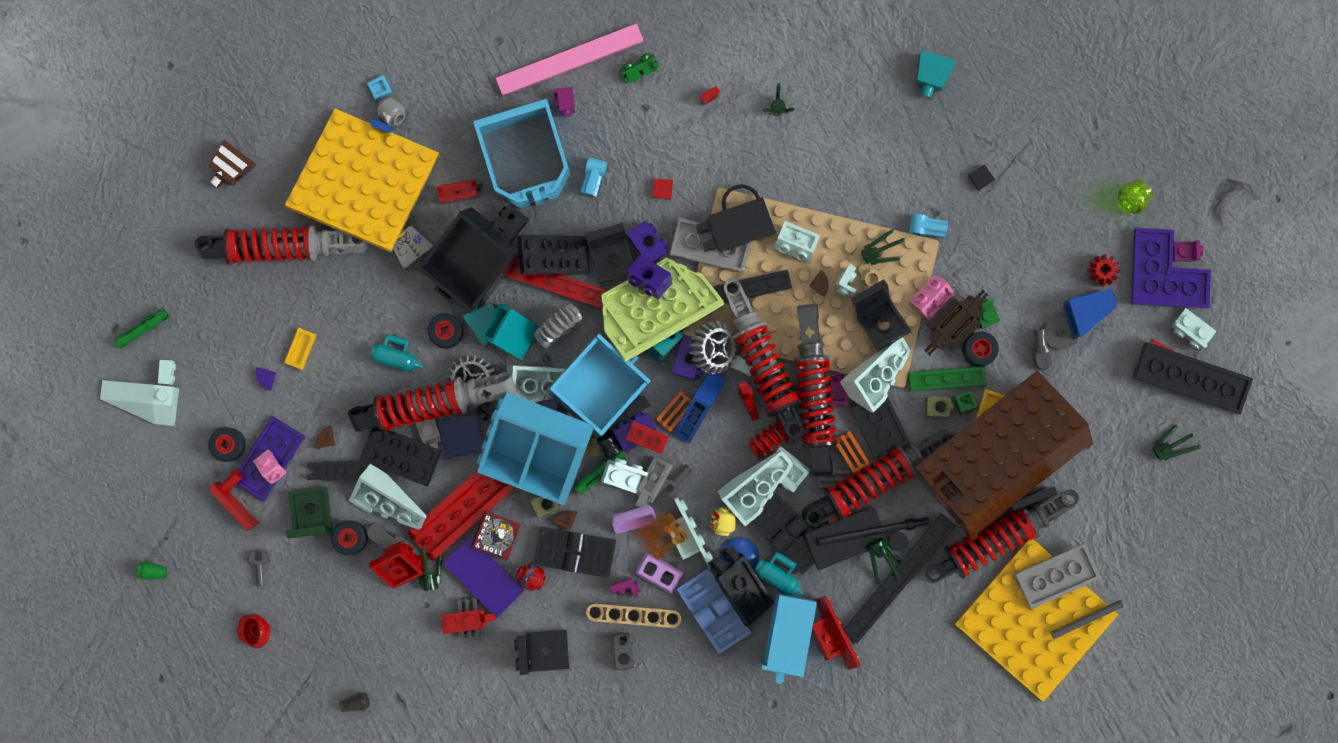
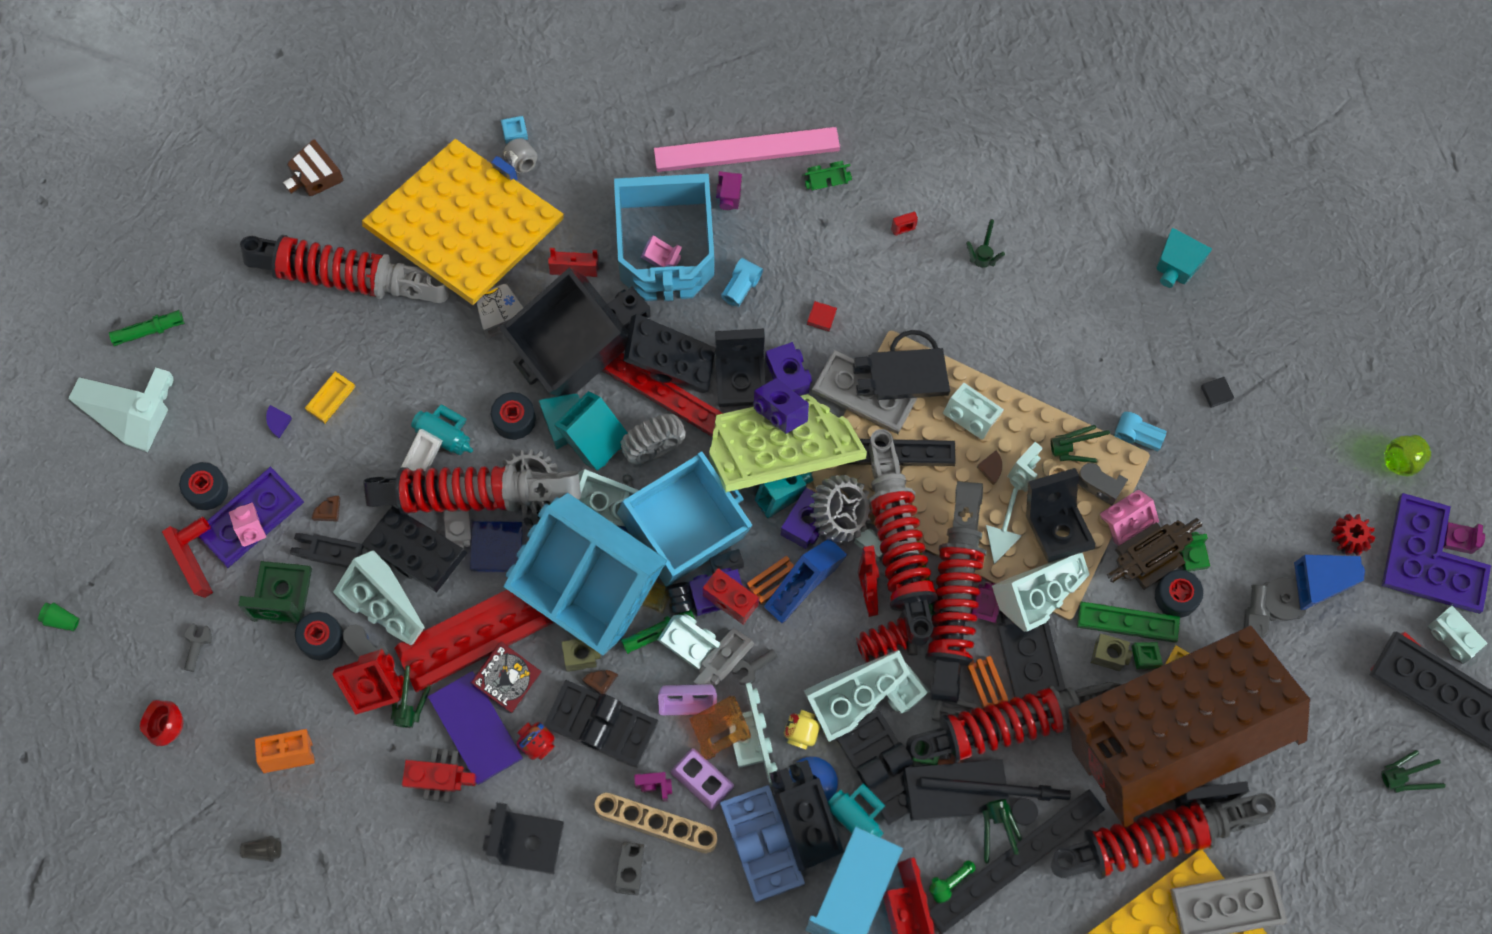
camera: 10 degrees right, 15 degrees down
(349, 629) = (284, 751): none -> orange hinge
(384, 379) = (422, 451): none -> white tile
(525, 168) = (660, 253): none -> bright pink bracket
(839, 338) = (1001, 539): none -> light aqua piece
(849, 612) = (941, 889): none -> green piece
(905, 278) = (1100, 484): none -> dark grey leg

